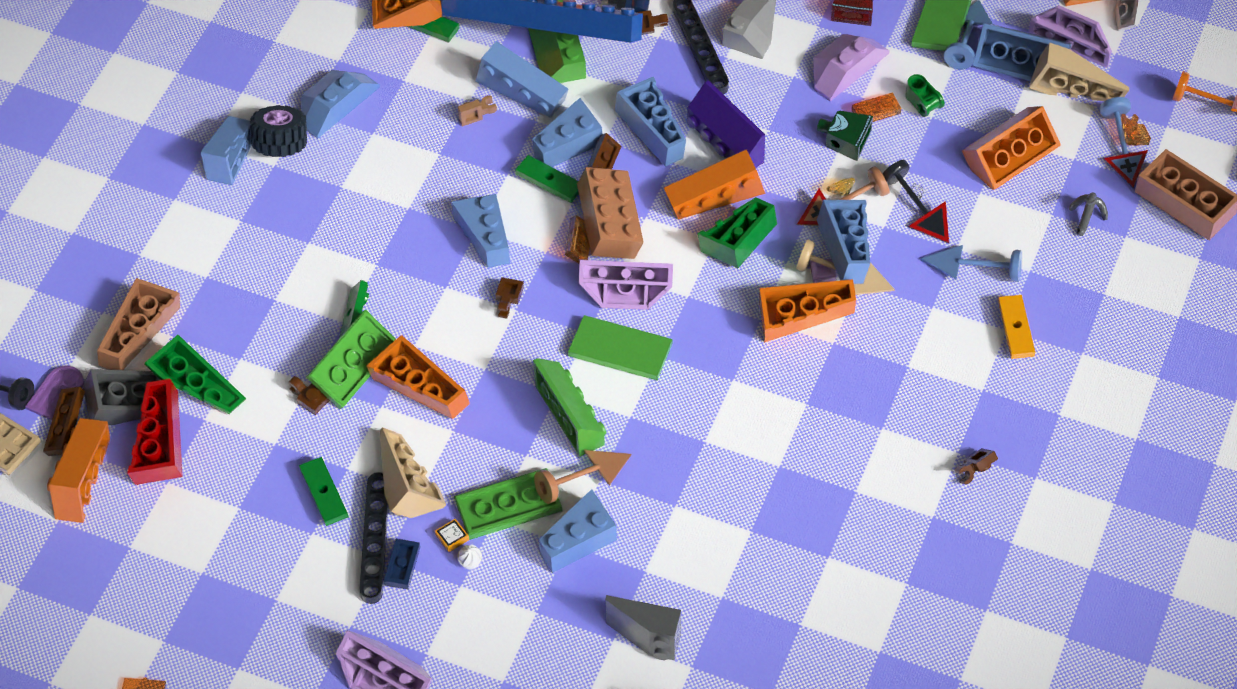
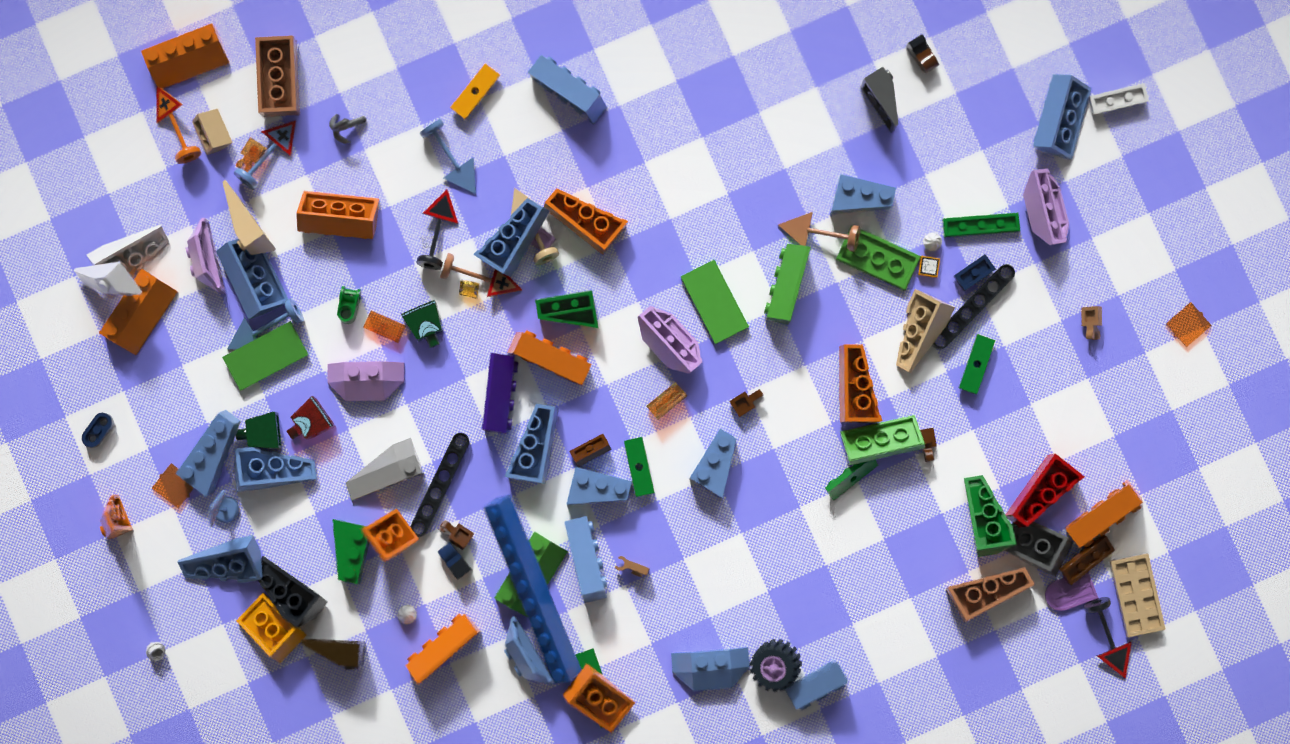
camera: 140 degrees left, 30 degrees up
(245, 618) = (1091, 318): none -> medium nougat plate
(436, 613) = (981, 225): none -> green tile
(610, 213) = (632, 398): nougat brick -> none
(938, 391) = (568, 88): none -> medium blue wedge
(979, 461) = (593, 28): reddish brown plate -> none
(1185, 120) = (212, 131): none -> tan brick

